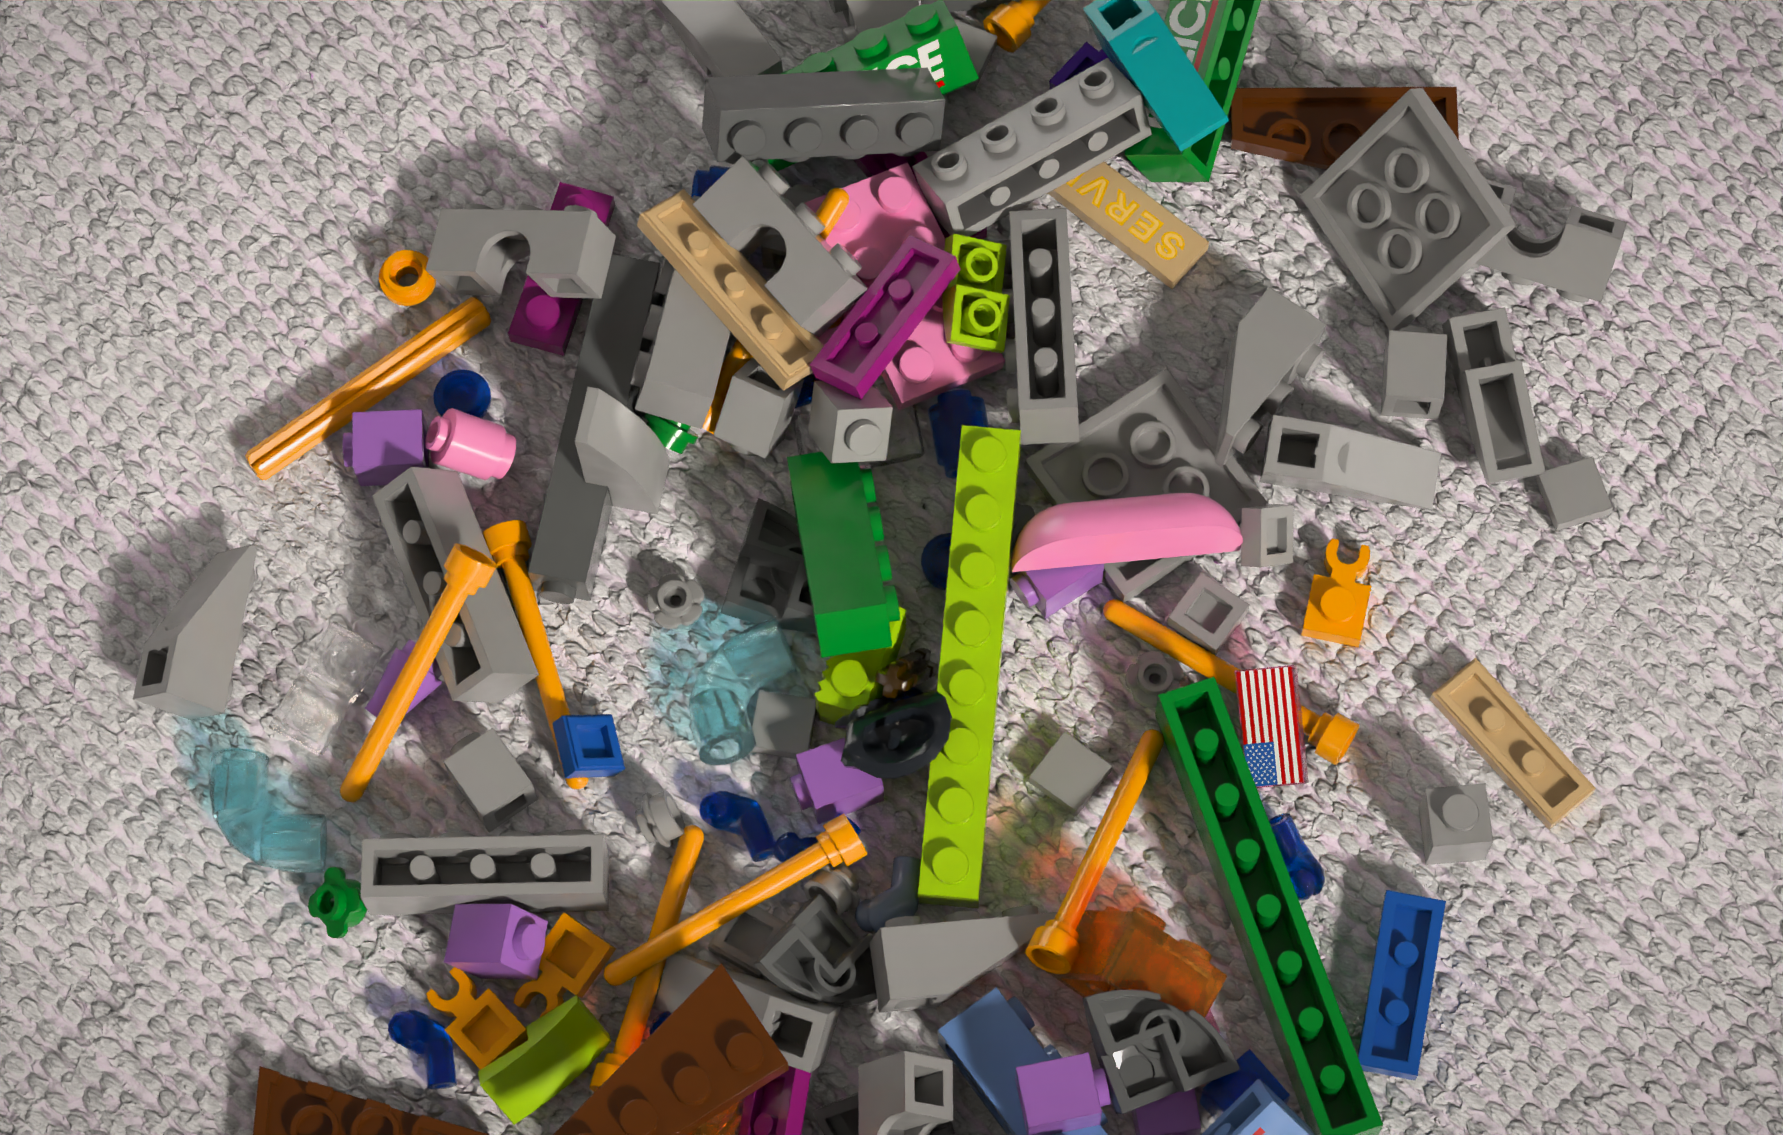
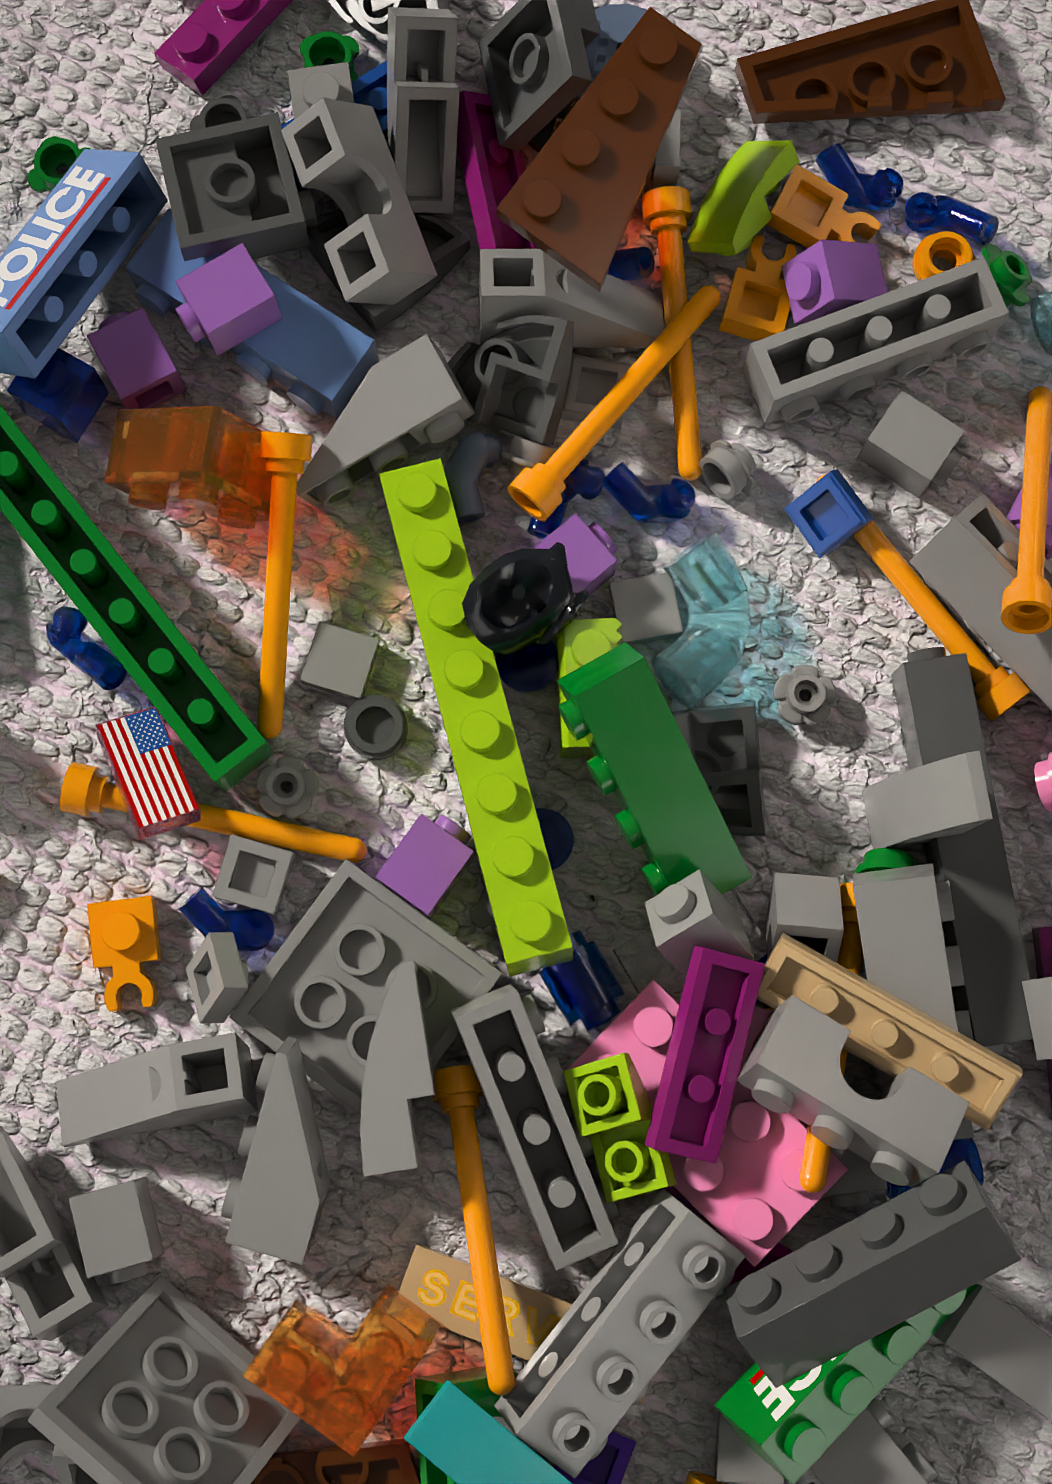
camera: 155 degrees right, 10 degrees up
(359, 983) = (942, 213): none -> clear blue arm
(375, 926) = (940, 245): none -> light orange plate
(906, 672) = (538, 687): dark brown axle -> none
(1058, 707) = (375, 727): none -> dark grey tile
(1096, 379) = (459, 1096): none -> light orange piece
(1125, 531) = (365, 914): bright pink brick -> none
(1142, 397) = (395, 1073): none -> light grey slope
(1152, 1047) = (149, 376): dark grey brick -> none
(1246, 583) = (250, 927): none -> clear blue arm
(1261, 197) = (338, 1379): none -> clear orange brick

